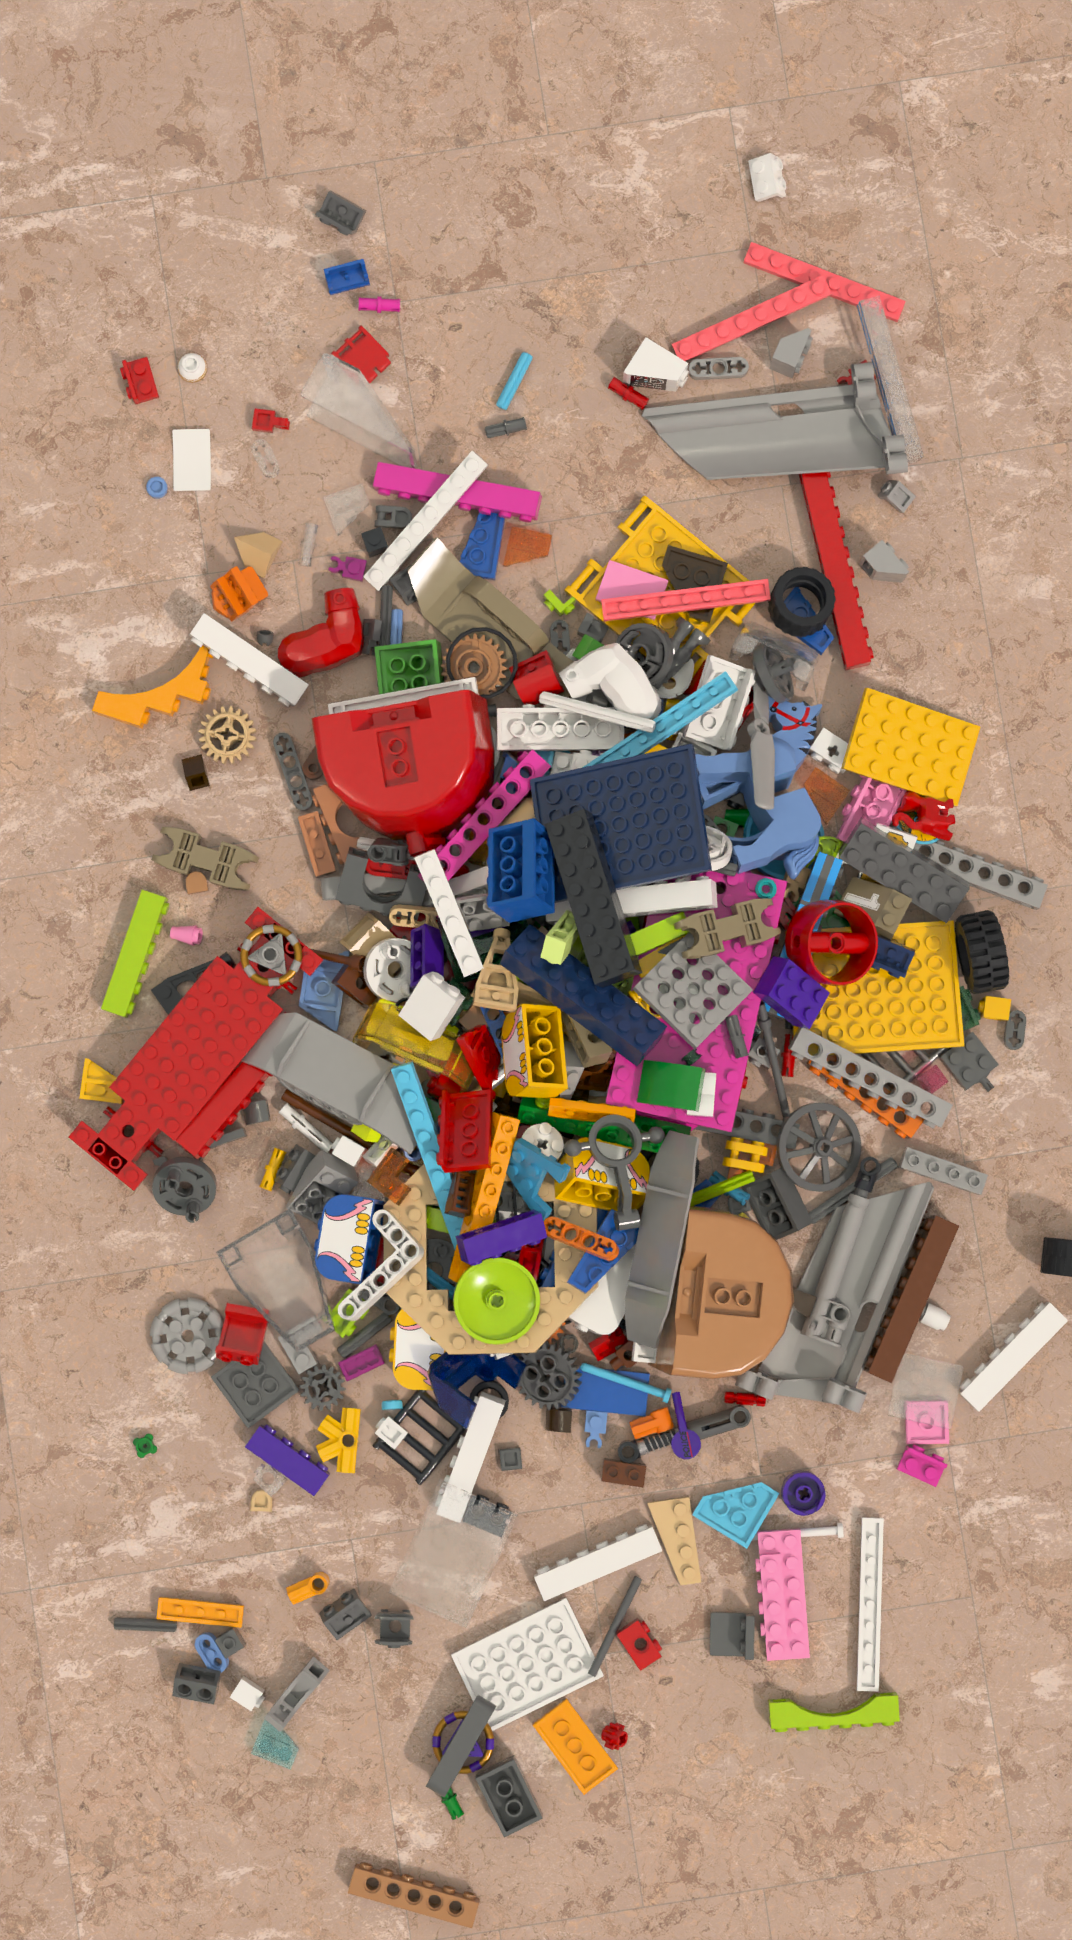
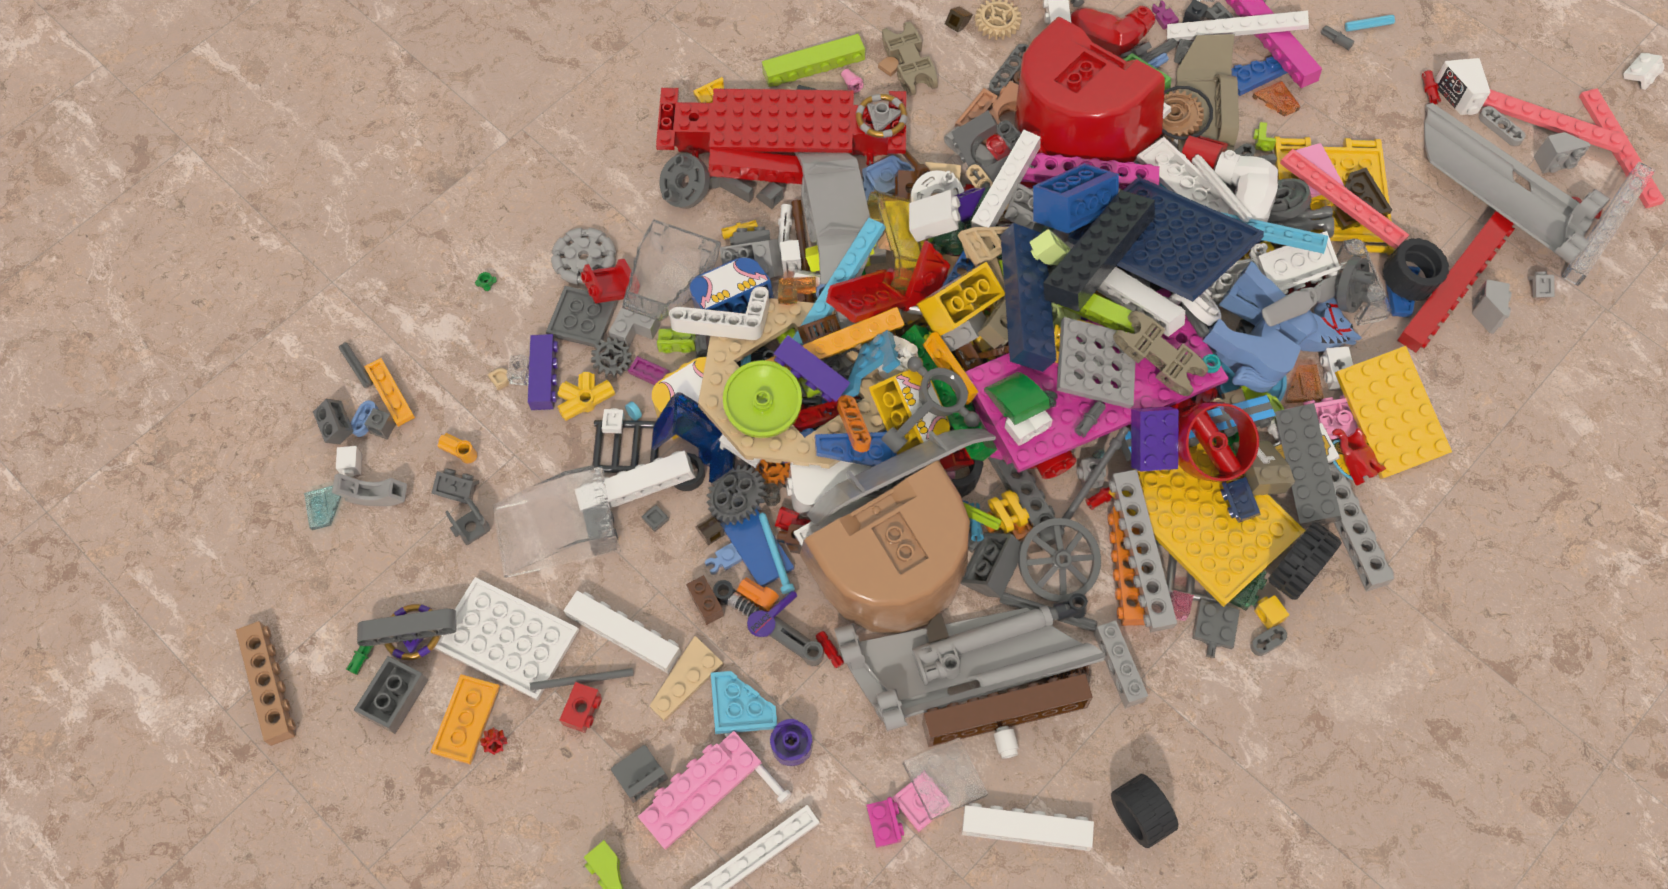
camera: 50 degrees right, 20 degrees down
(364, 1335) = (664, 359): dark grey axle -> none

